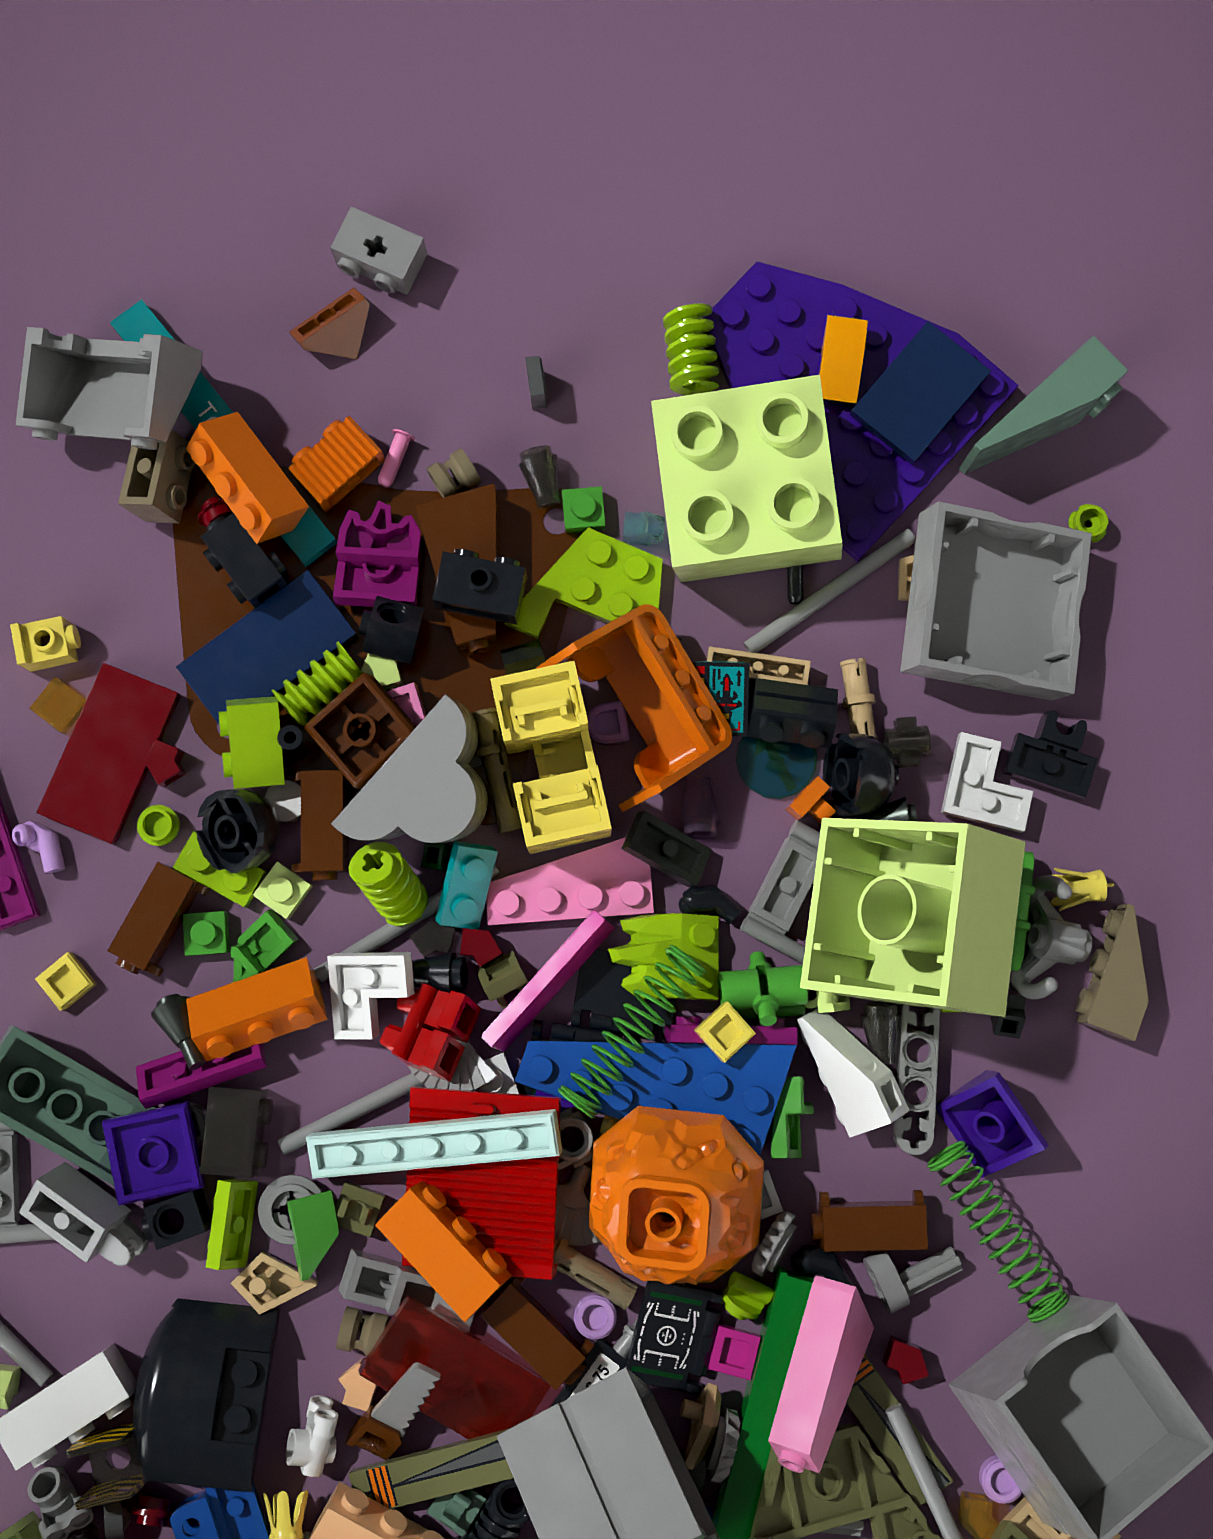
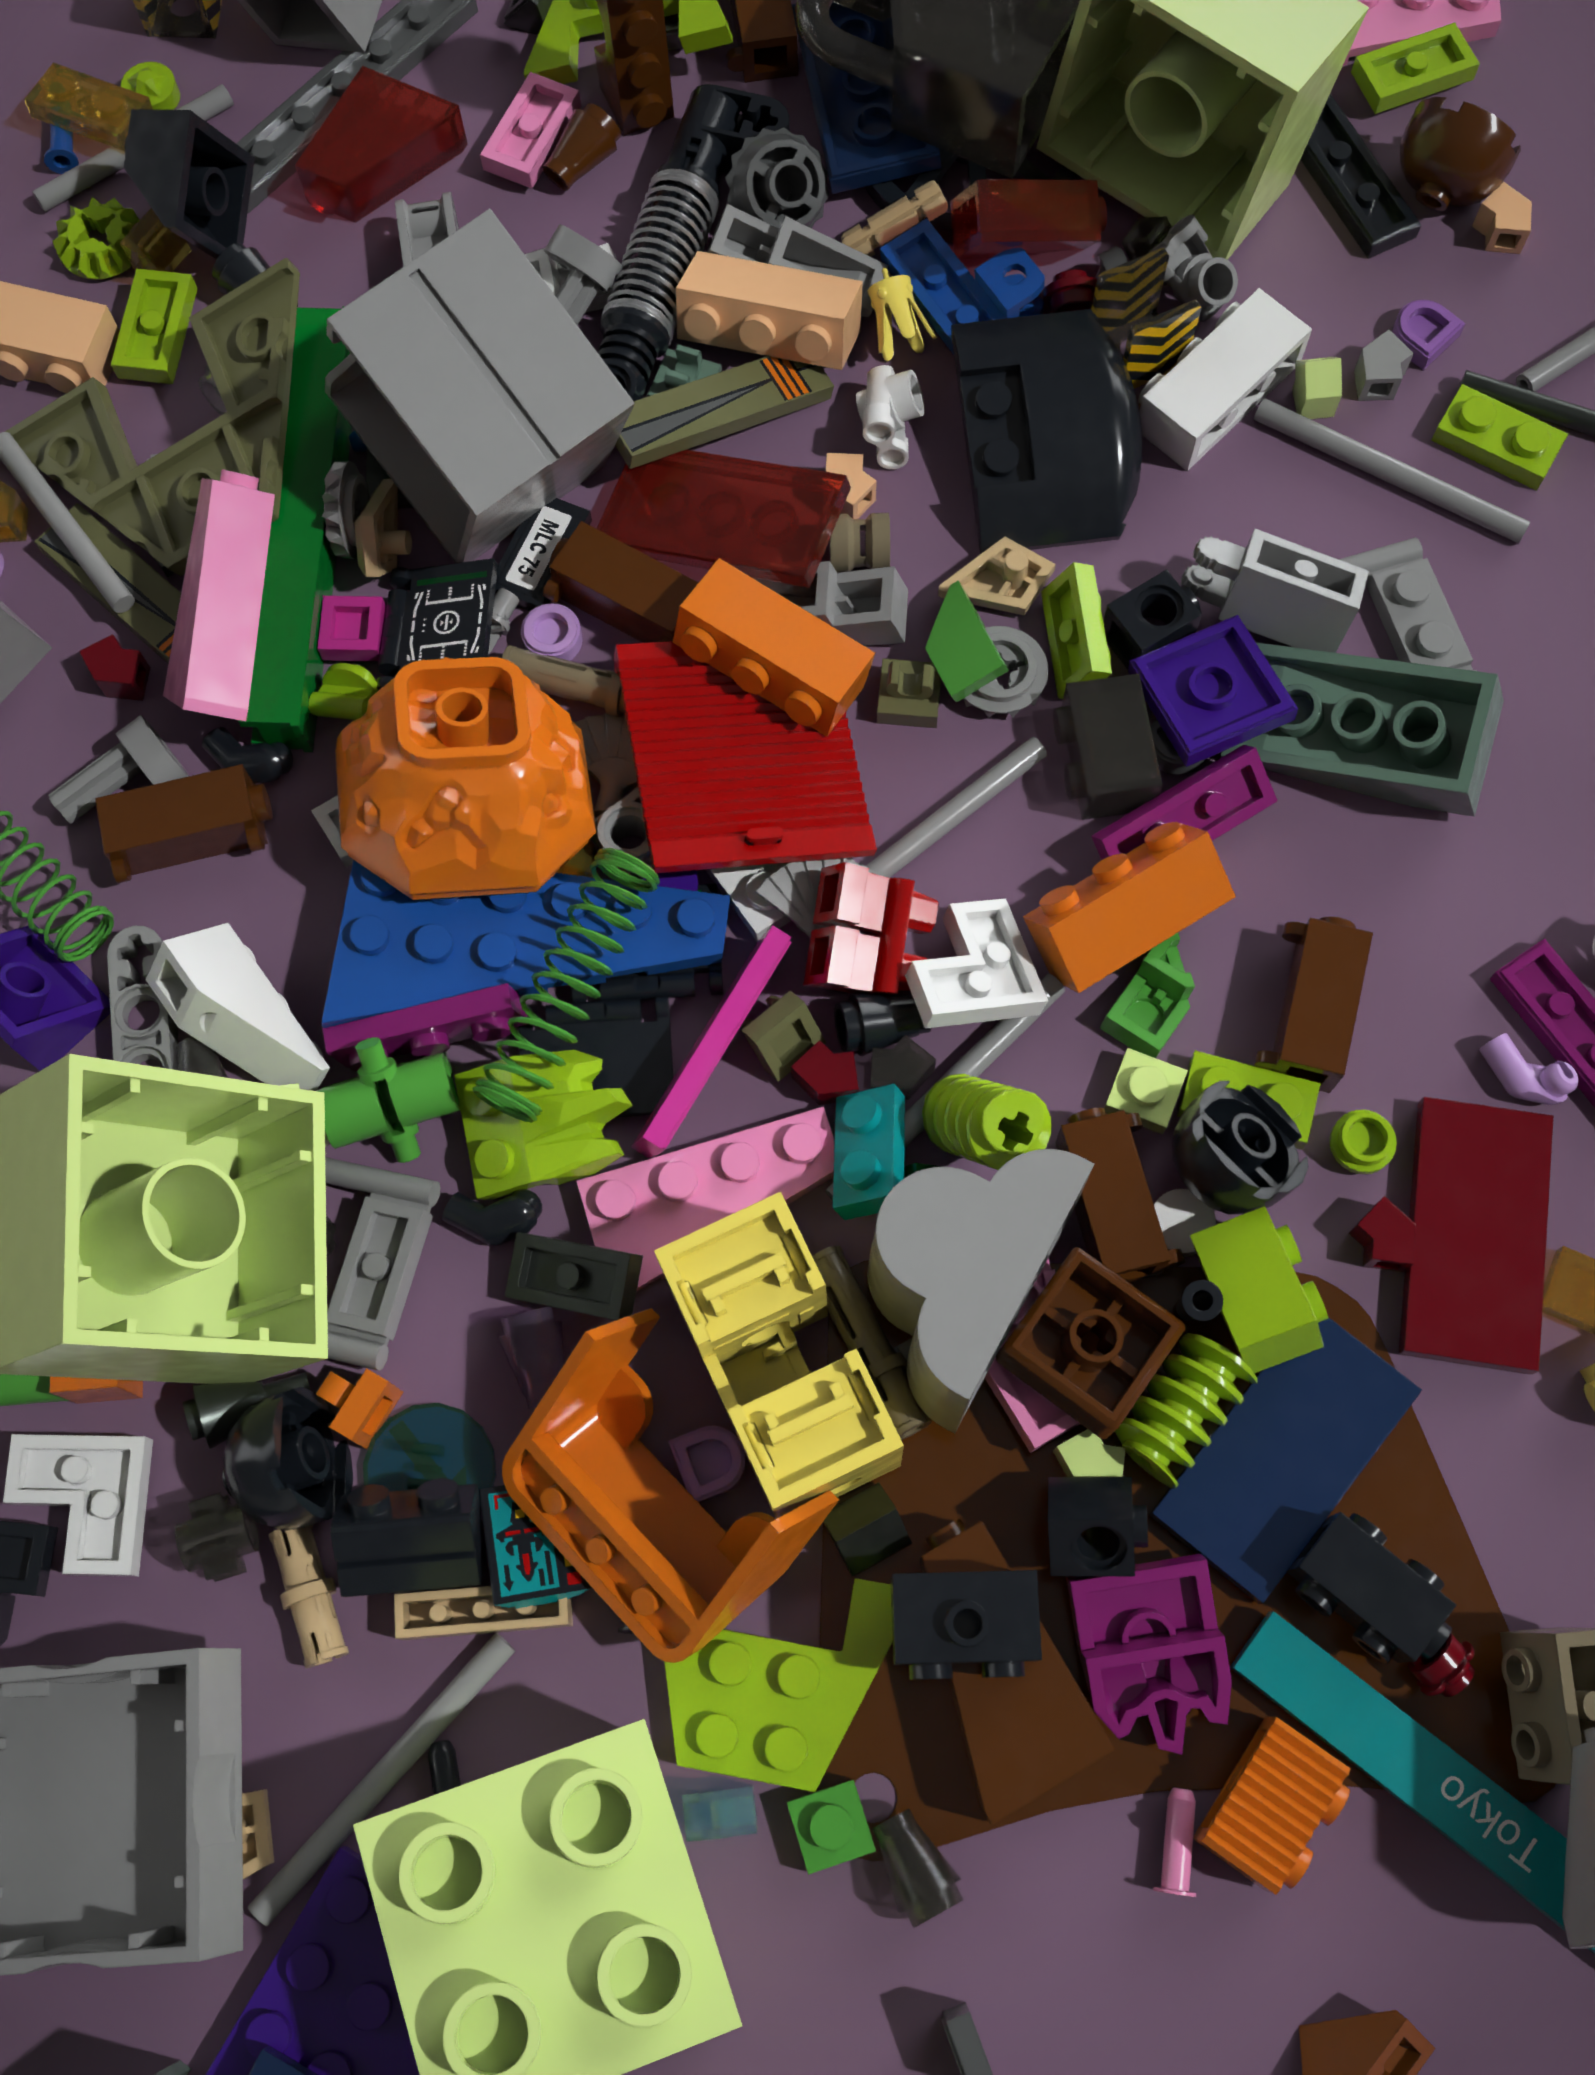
camera: 170 degrees right, 10 degrees down
(66, 981) = (1418, 894): light yellow tile -> none
(173, 1019) = (1244, 866): pearl dark grey cone -> none
(206, 933) = (1238, 1004): bright green plate -> none
(246, 477) = (1417, 1731): orange brick -> none
(384, 1426) = (793, 444): piece -> none
(434, 1144) = (818, 779): light aqua tile -> none
(461, 470) = (1053, 1841): dark tan wheel -> none
(724, 1031) = (430, 1014): light yellow tile -> none
(774, 1243) = (313, 763): light grey gear -> none
(786, 1124) = (322, 918): bright green slope -> none

